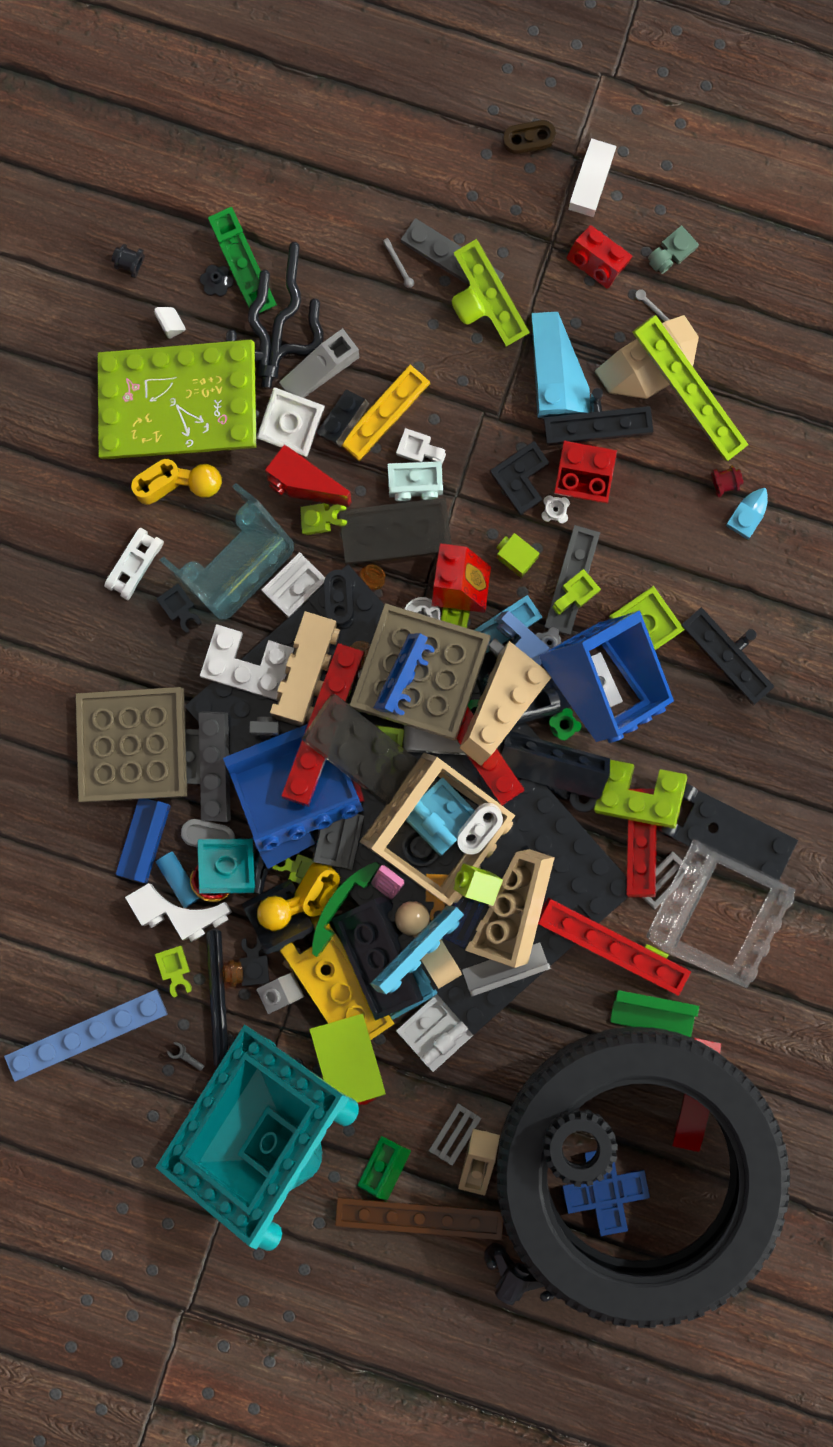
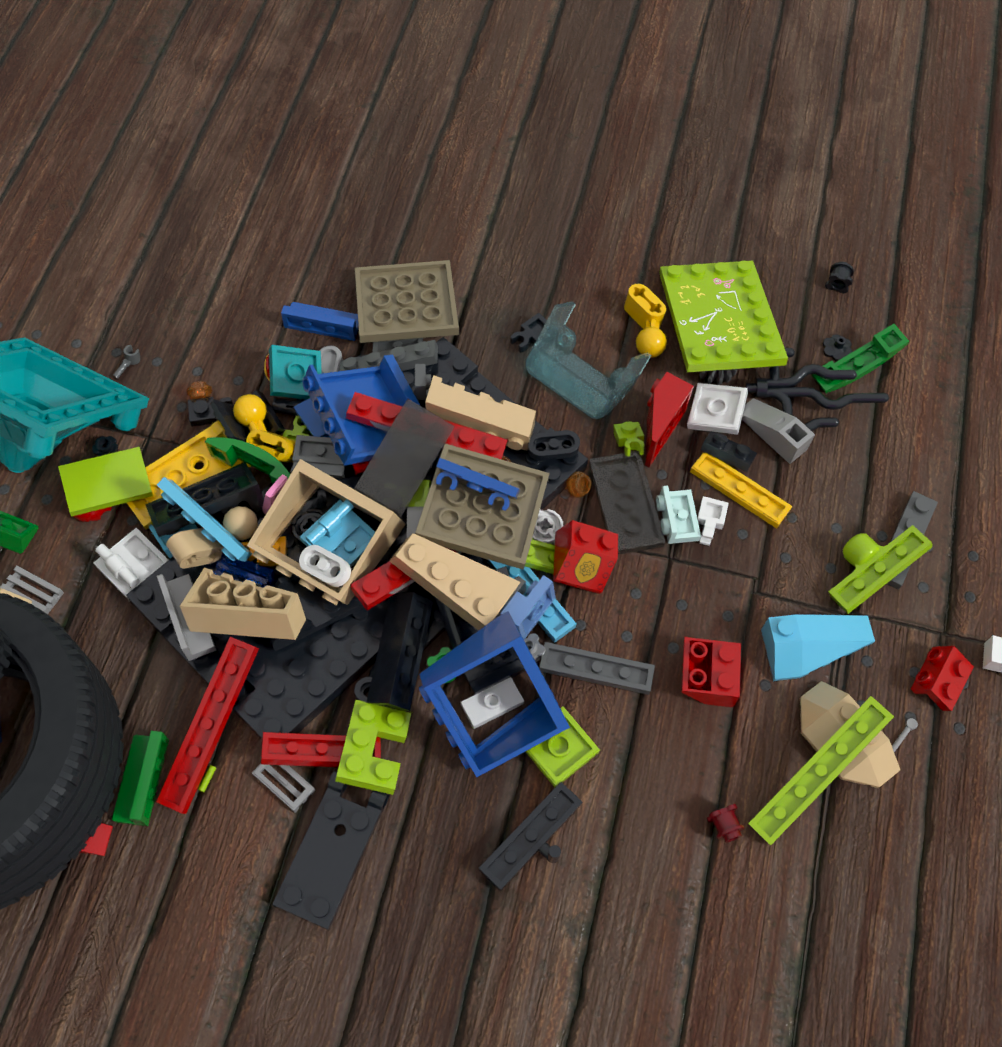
camera: 85 degrees right, 20 degrees down
(85, 1035) = (151, 290): medium blue plate -> none
(133, 563) = (569, 293): white plate -> none
(151, 906) = (261, 327): white arch -> none
(169, 321) = (791, 310): white slope -> none
(173, 965) = (208, 346): lime plate -> none
(177, 879) = (296, 339): dark azure piece -> none
(217, 995) = (182, 382): black axle -> none
(225, 669) = (484, 357): white plate -> none
(280, 992) = (176, 425): light grey brick -> none
(294, 585) = (563, 415): white plate -> none
(408, 282) = (873, 502): light grey hinge -> none
(477, 884) = (266, 564): brick -> none
(514, 477) = (699, 606): black plate -> none
(516, 554) = (616, 612): lime brick -> none
(551, 502) = (672, 642): white plate -> none
(578, 591) = (585, 668): lime plate -> none
(598, 423) = (765, 686): black plate -> none
(676, 246) = (972, 758): sand green plate -> none
(684, 897) = (195, 814): clear windscreen -> none
(749, 513) = (694, 854): medium azure plate -> none

